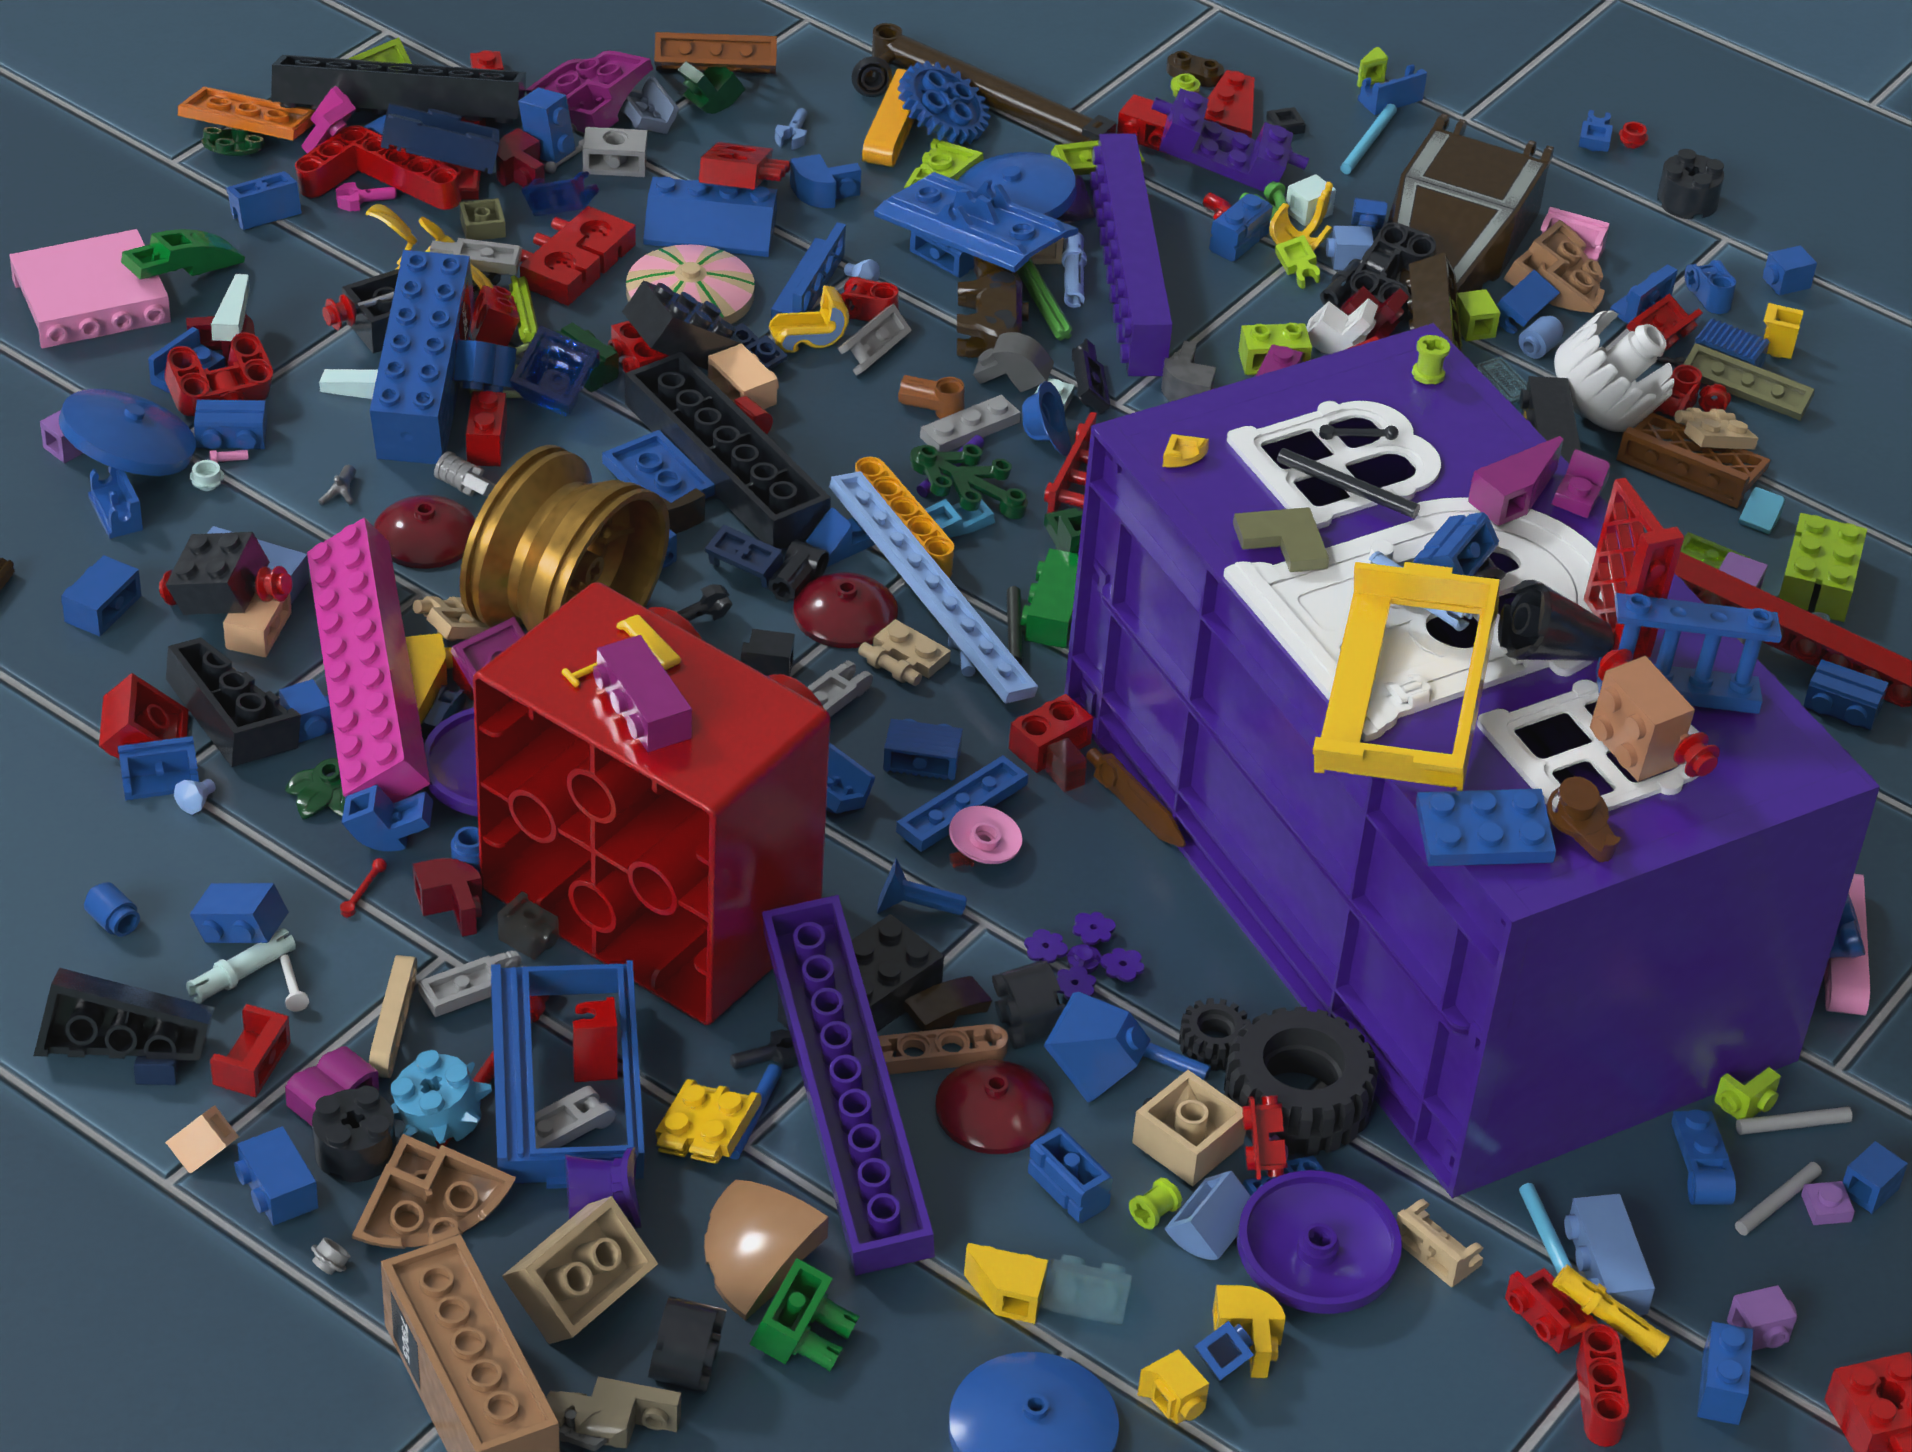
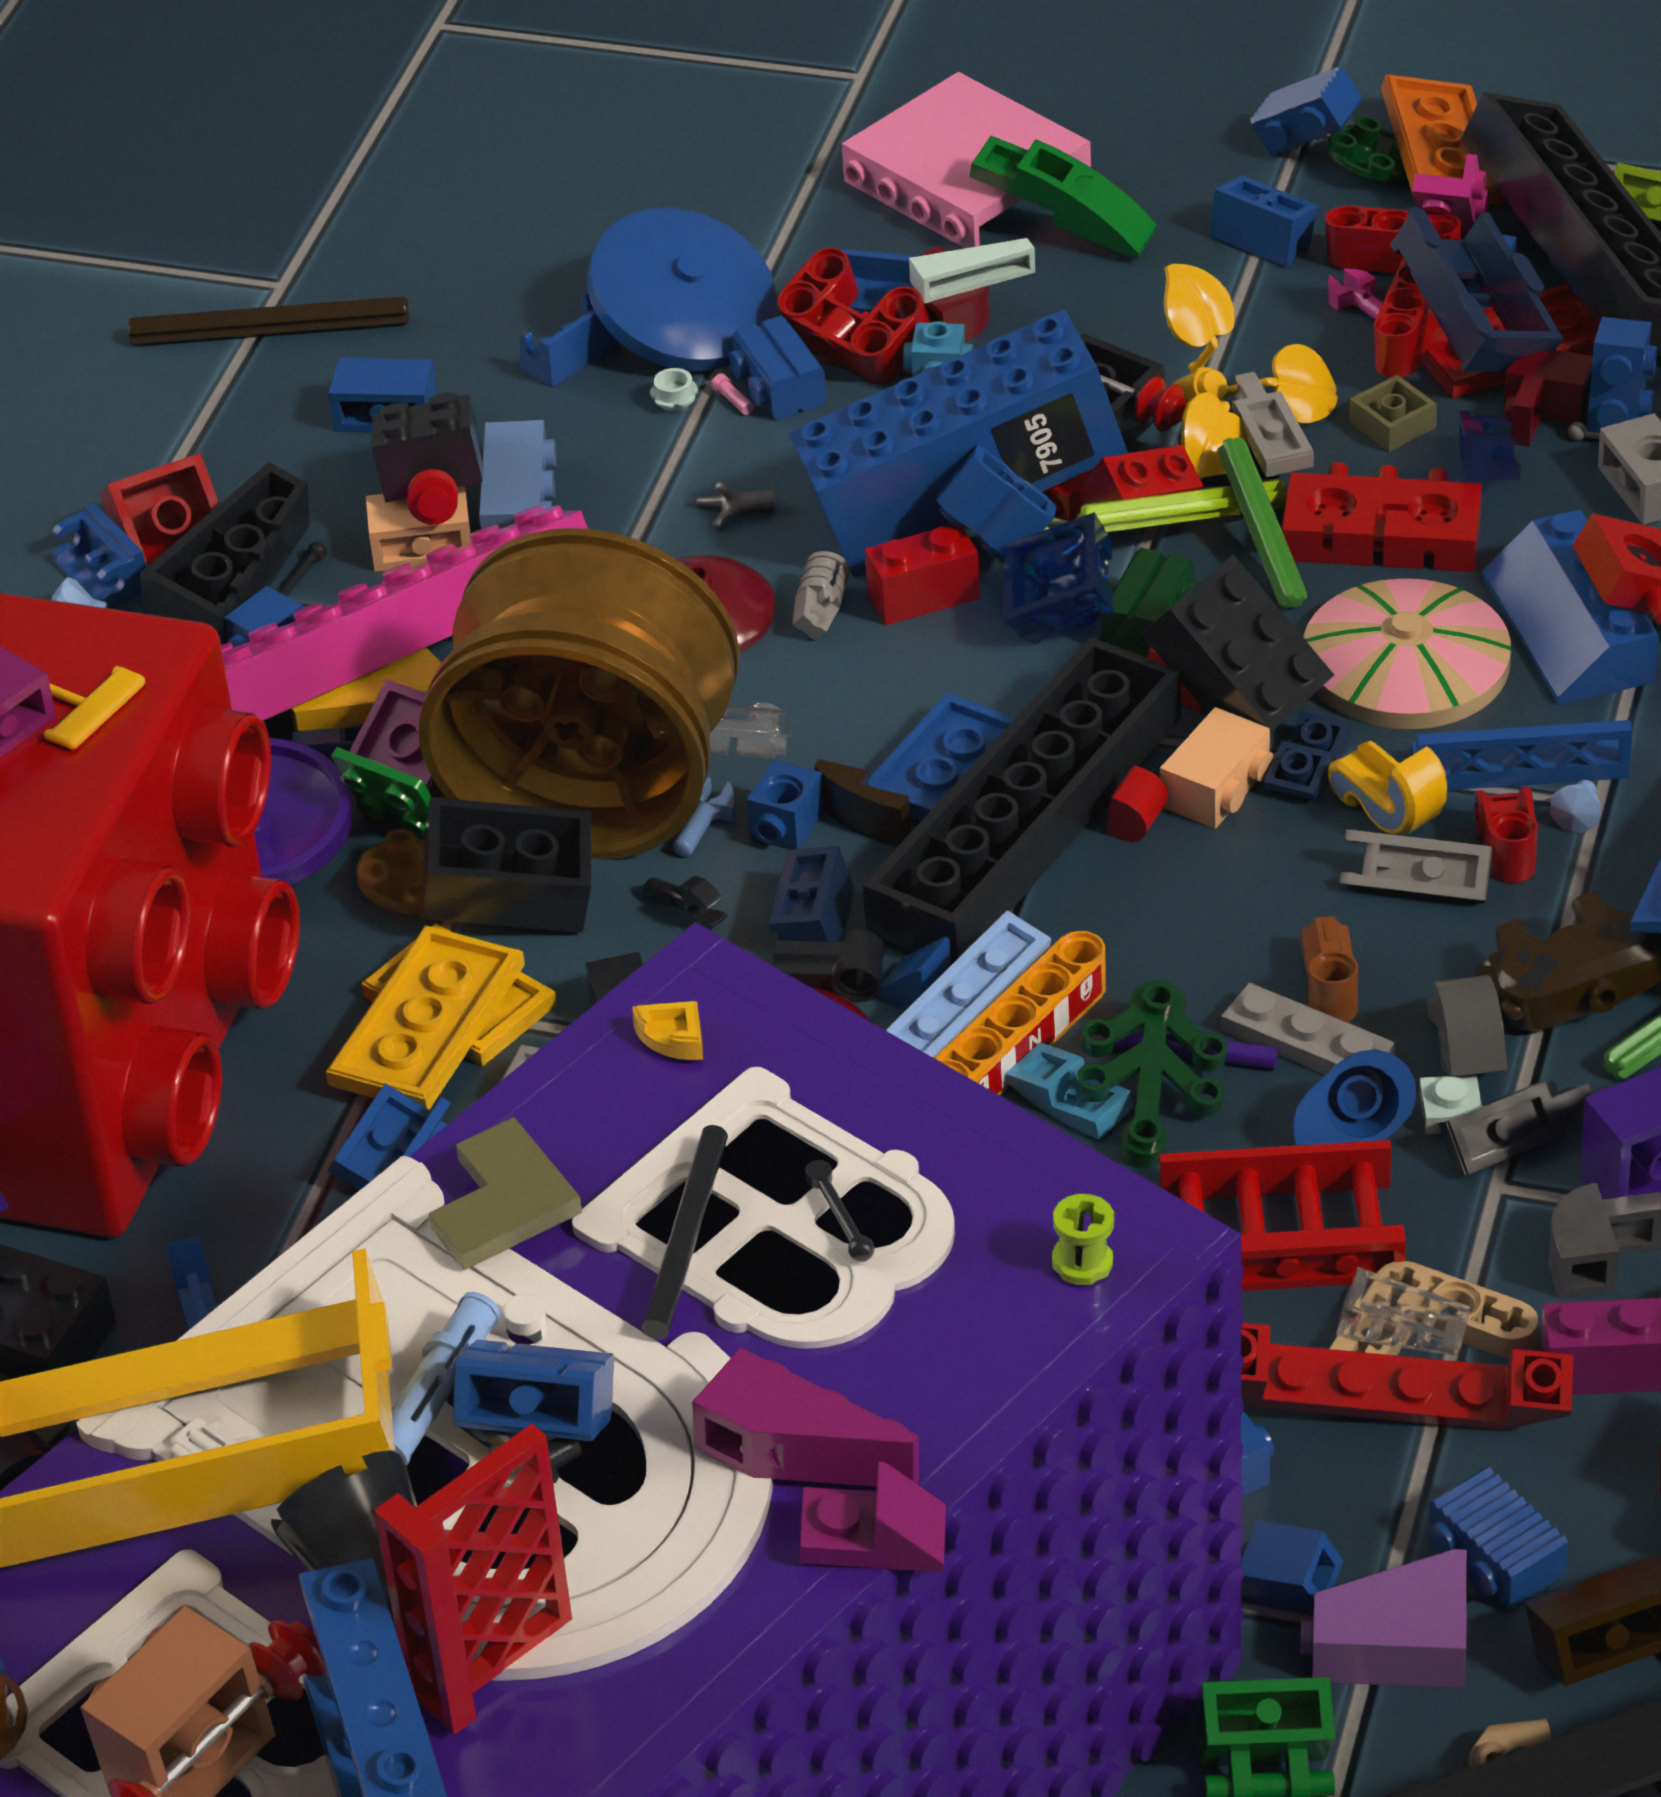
camera: 75 degrees right, 0 degrees up
(187, 144) = (1306, 110): none -> blue brick
(289, 358) = (934, 345): none -> dark azure brick
(556, 289) = (1262, 523): none -> bright green axle

